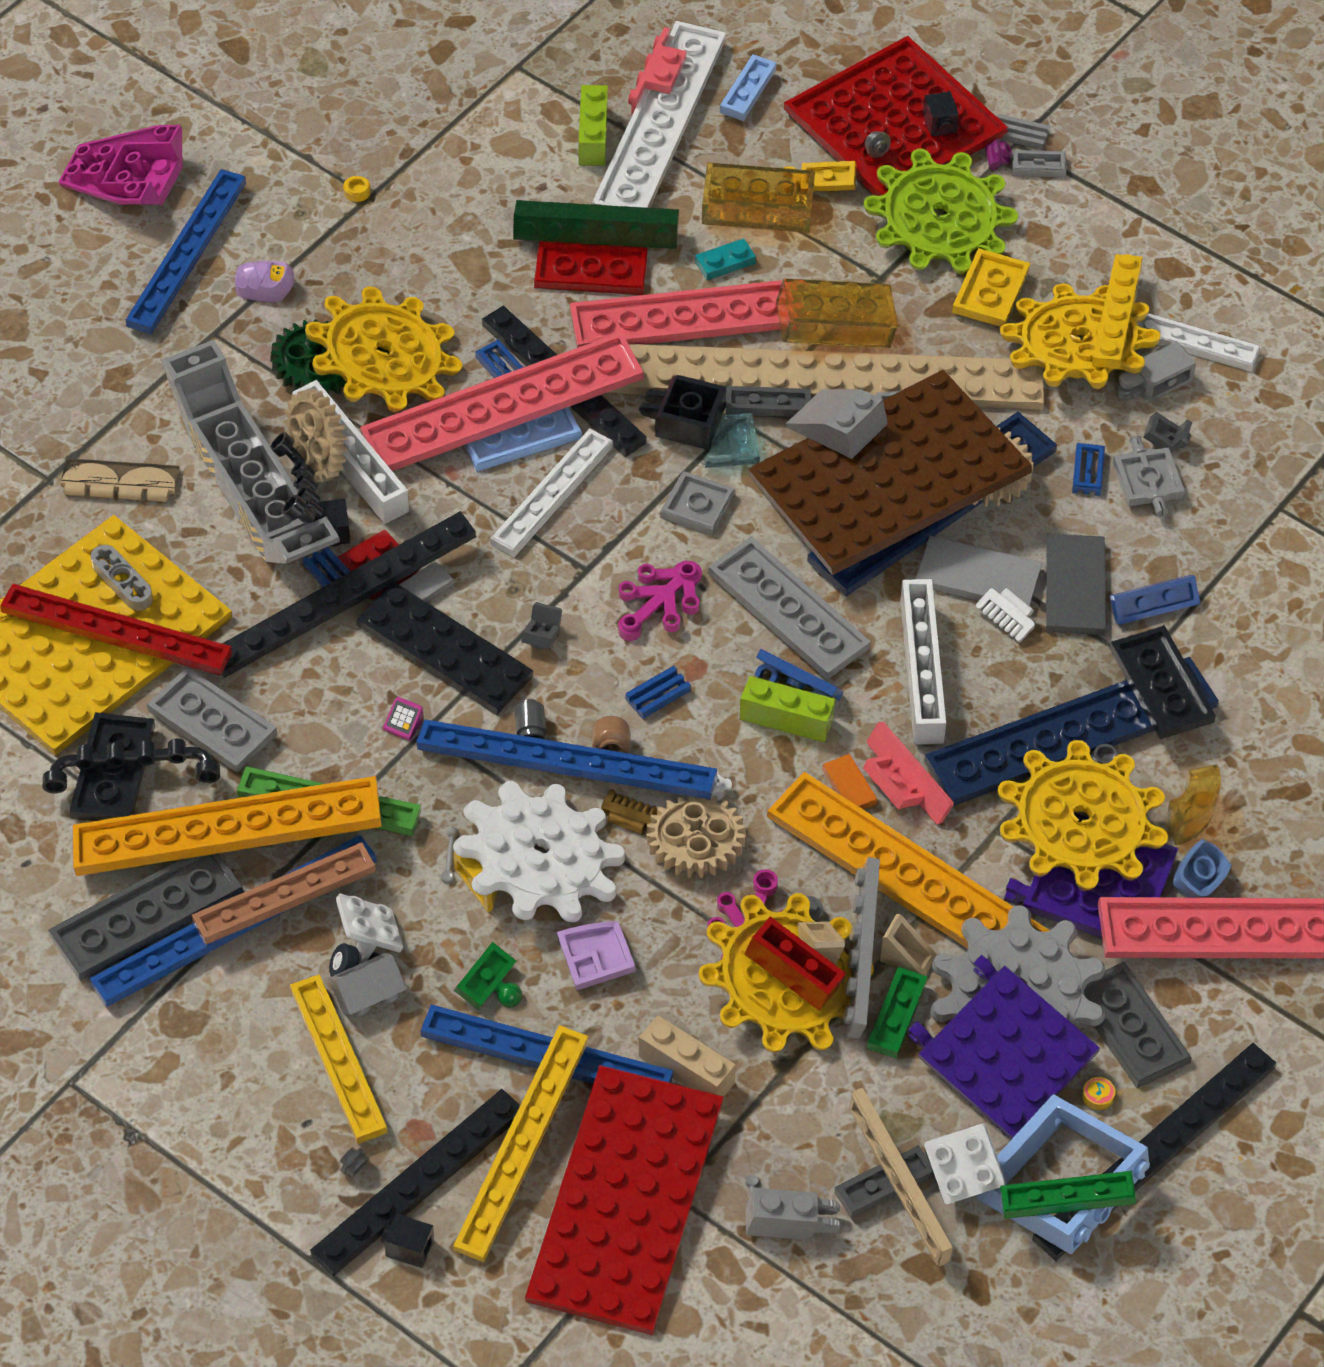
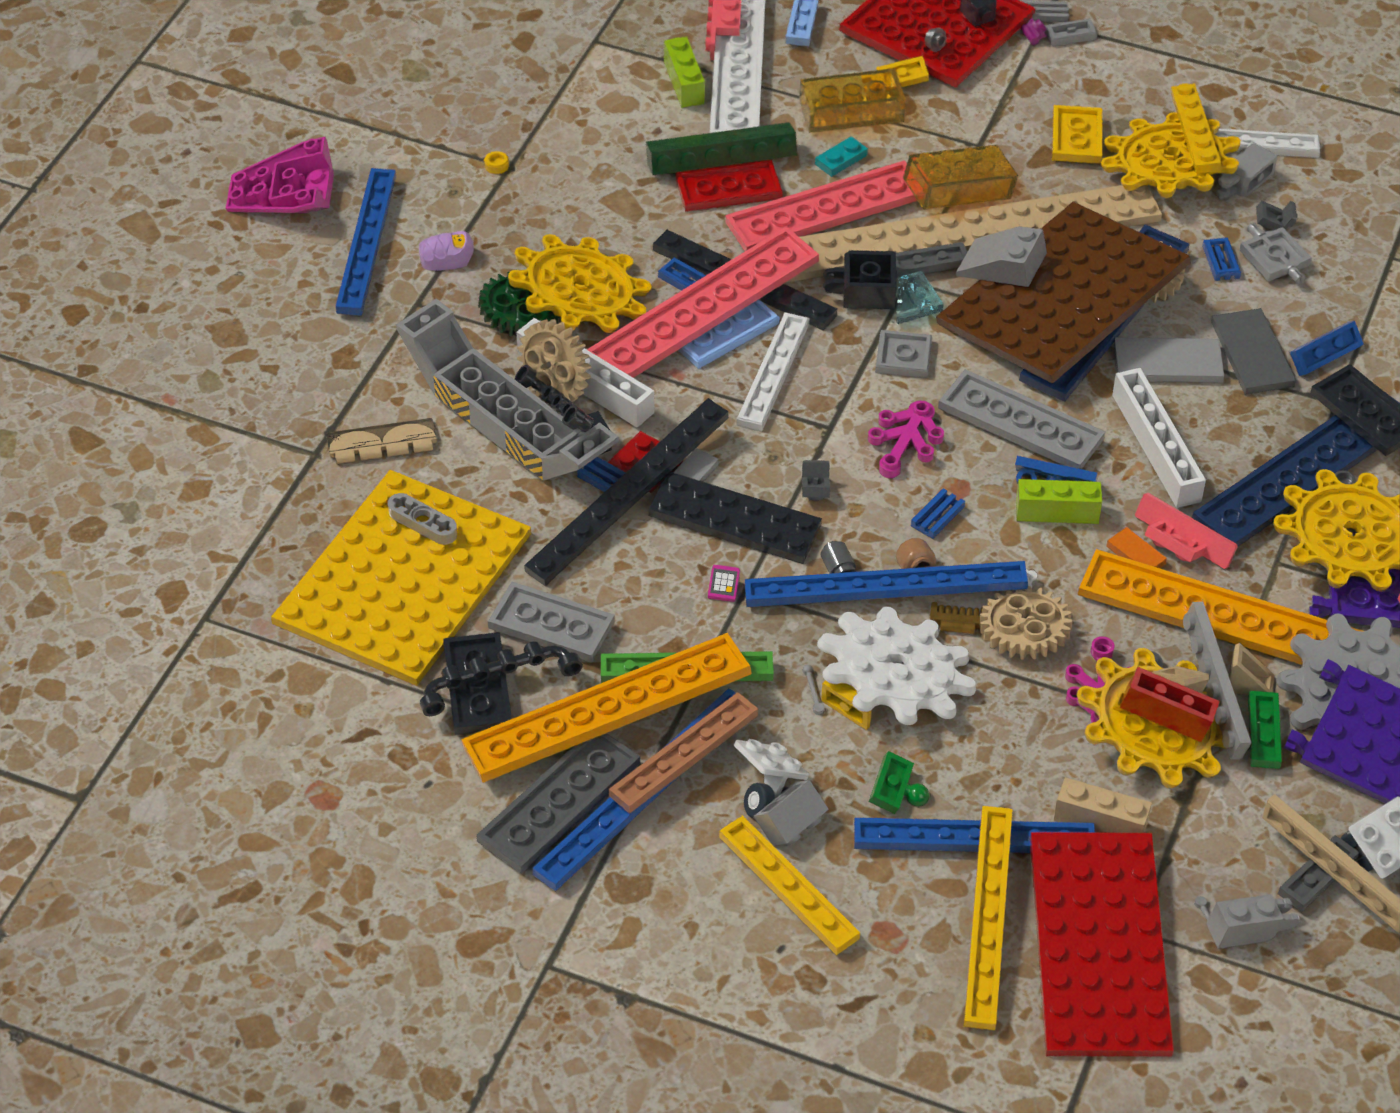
camera: 15 degrees left, 5 degrees down
(116, 629) = (436, 562): red plate -> none
(353, 1161) = (841, 970): flat silver plate -> none
(408, 1240) = (921, 1026): black brick -> none
(416, 1182) = (904, 976): black plate -> none
(595, 953) = (981, 741): lavender plate -> none
(933, 186) = (990, 66): lime plate -> none
(1010, 606) = (1213, 380): white piece -> none

